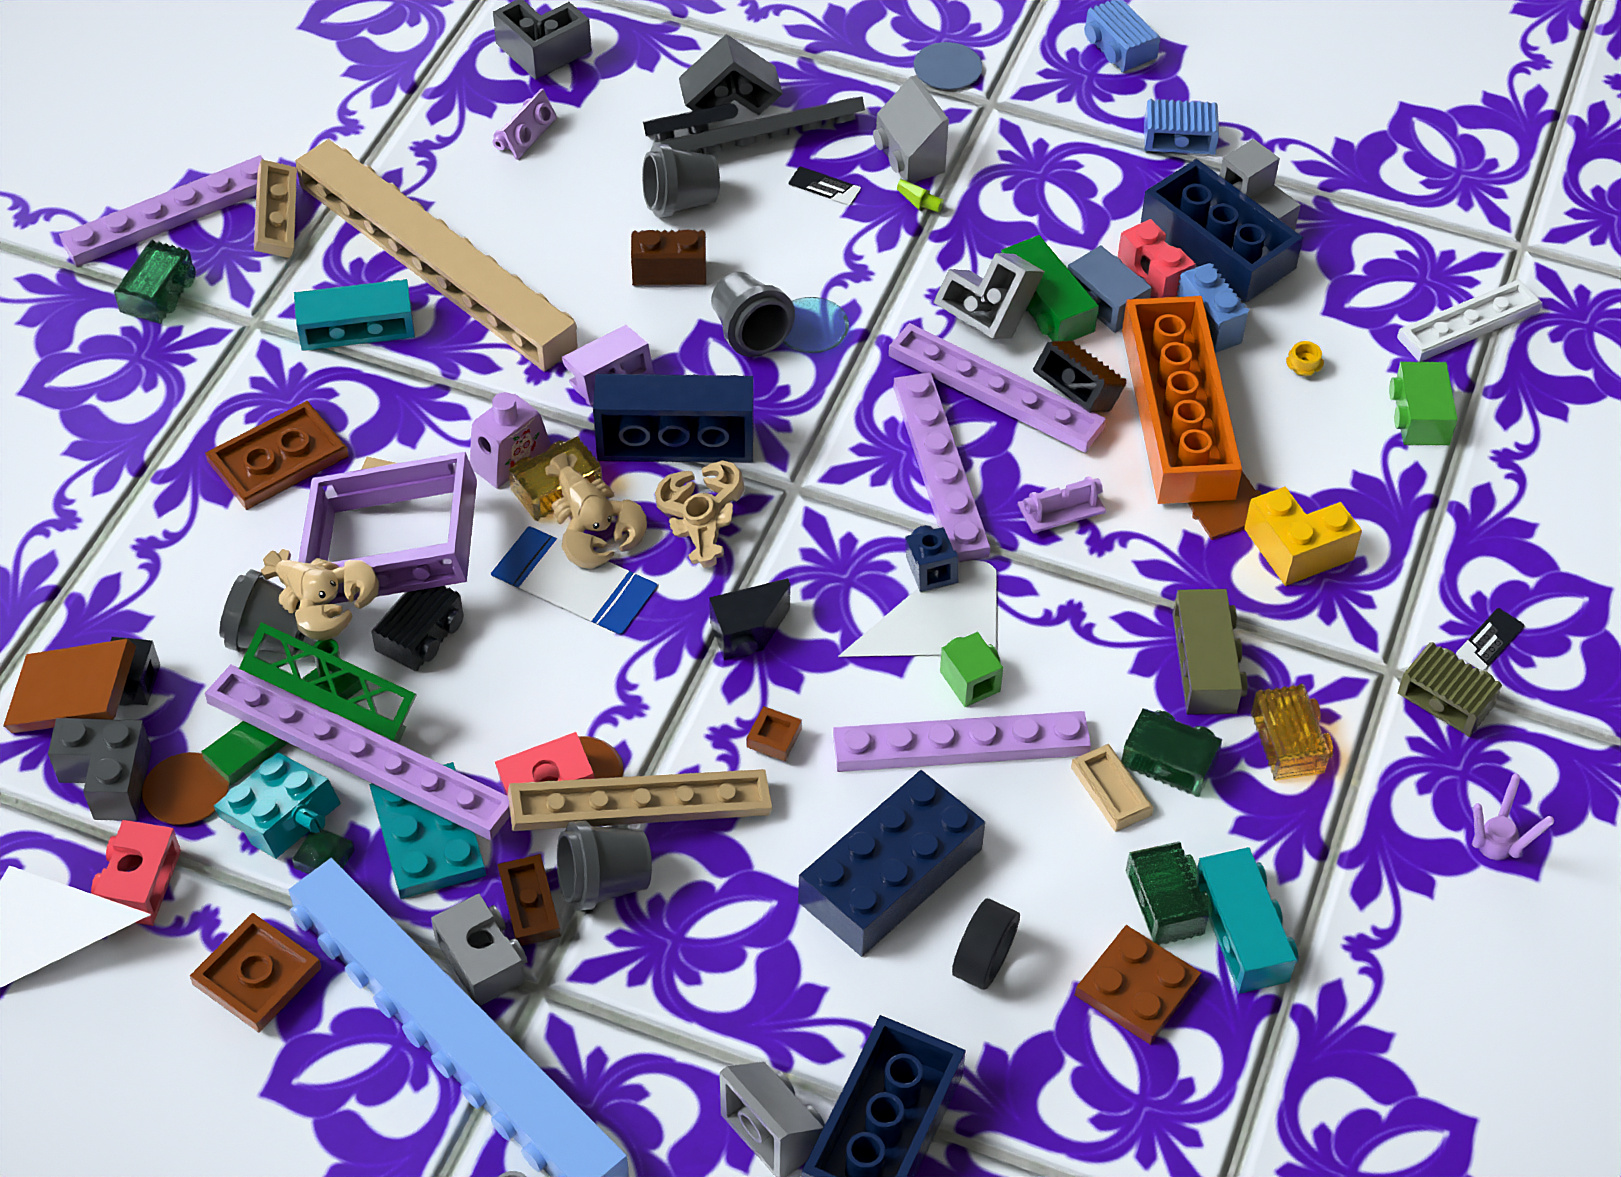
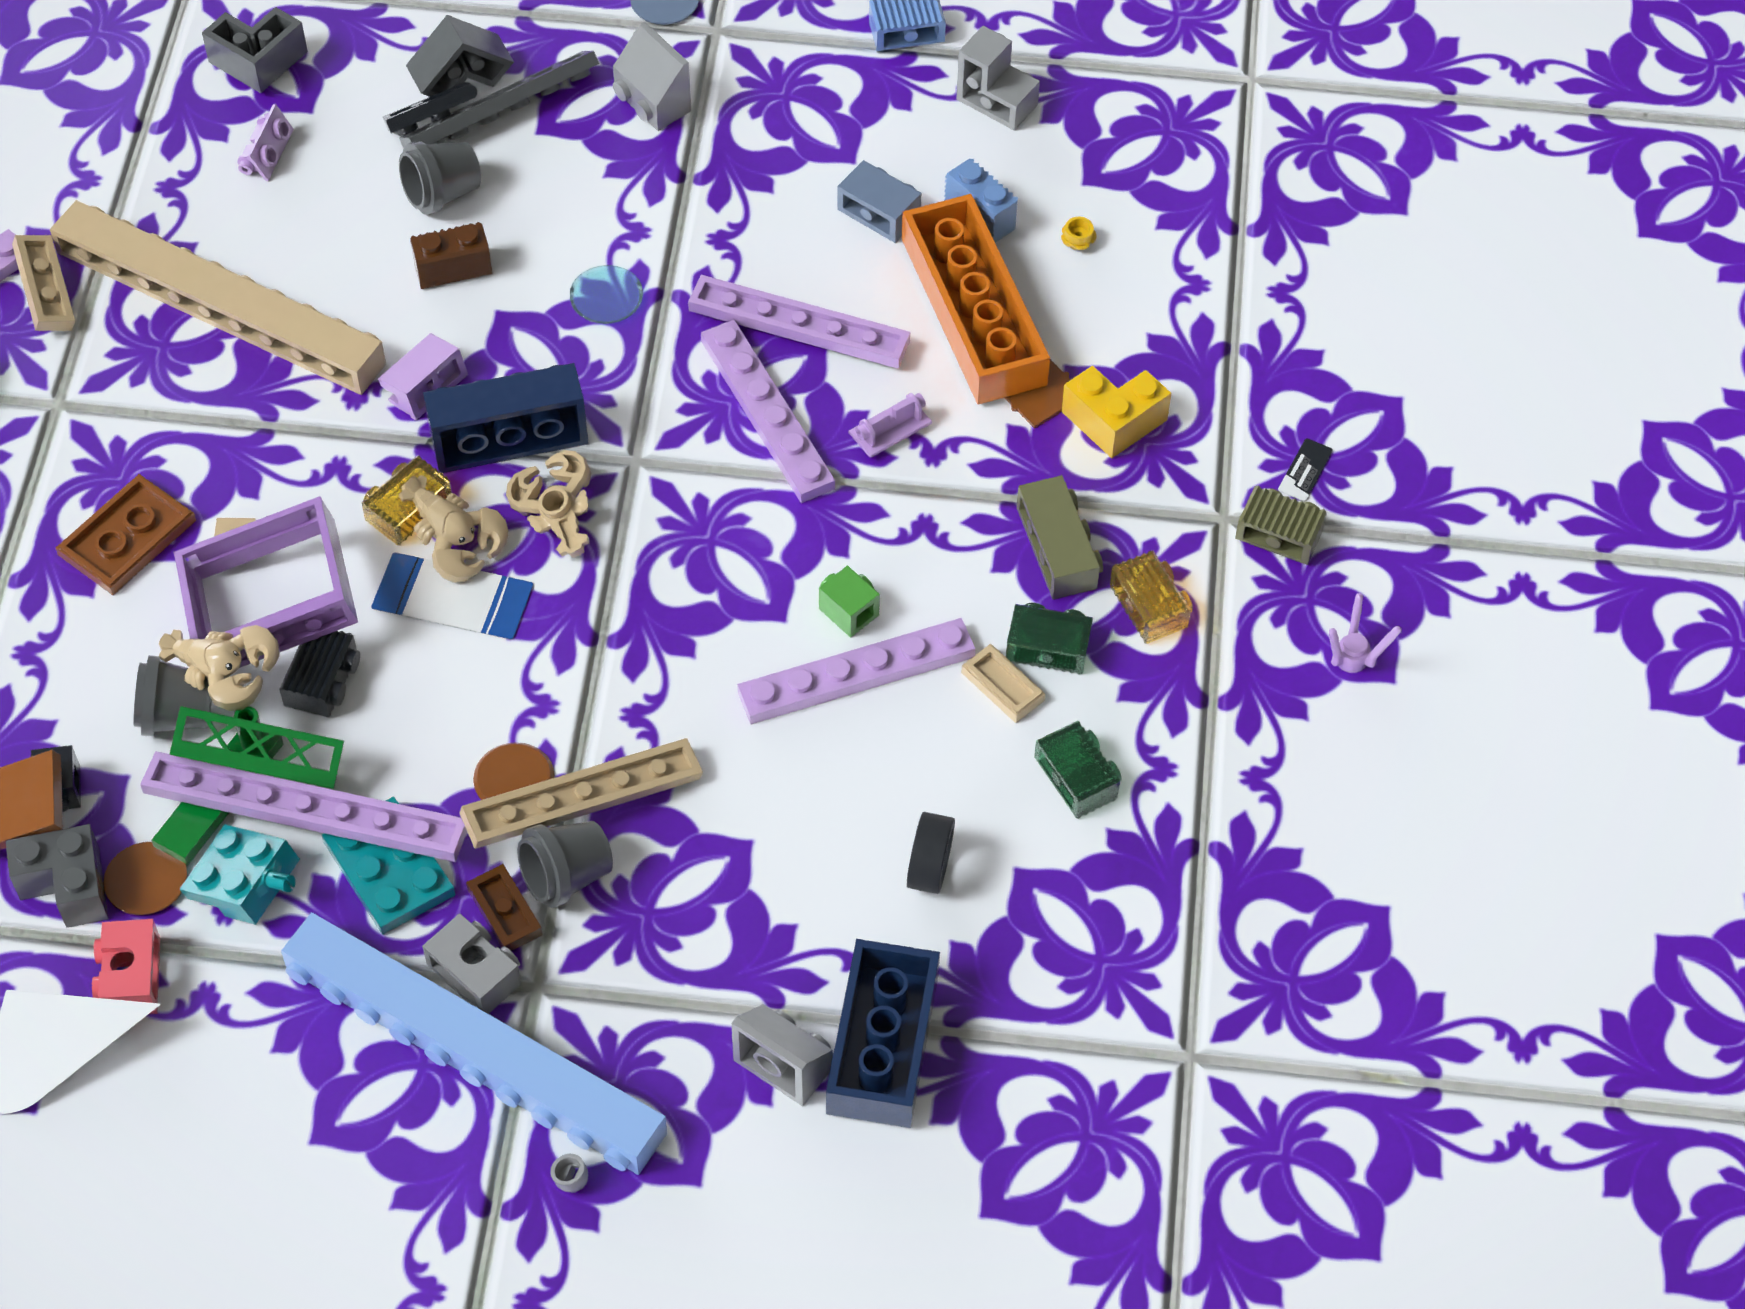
camera: 15 degrees left, 5 degrees up
(255, 972) = (271, 1033): dark orange plate -> none
(320, 848) = (295, 907): clear green plate -> none
(354, 314) = (158, 376): teal brick -> none
(505, 436) = (348, 472): lavender torso -> none
(553, 760) = (495, 772): coral brick -> none
(748, 617) = (629, 597): black slope -> none
(752, 314) = (549, 296): dark grey piece -> none
(774, 733) = (684, 702): dark orange plate -> none
(824, 185) = (578, 148): sticker -> none
(891, 862) = (825, 798): dark blue brick -> none
(919, 196) = (674, 141): lime bar -> none
(930, 549) = (781, 495): dark blue brick -> none
(935, 617) = (803, 553): white sticker -> none
(991, 302) = (778, 237): light grey brick -> none
(1059, 302) = (823, 214): green brick -> none
(1079, 376) = (875, 295): black brick -> none
(1138, 984) = (1071, 857): dark orange plate -> none
(1165, 261) = (928, 164): coral brick -> none
(1222, 228) = (970, 120): dark blue brick -> none
(1247, 920) = (1153, 778): teal brick -> none
(1423, 403) = (1197, 255): bright green brick -> none
(1469, 320) = (1219, 163): white tile -> none

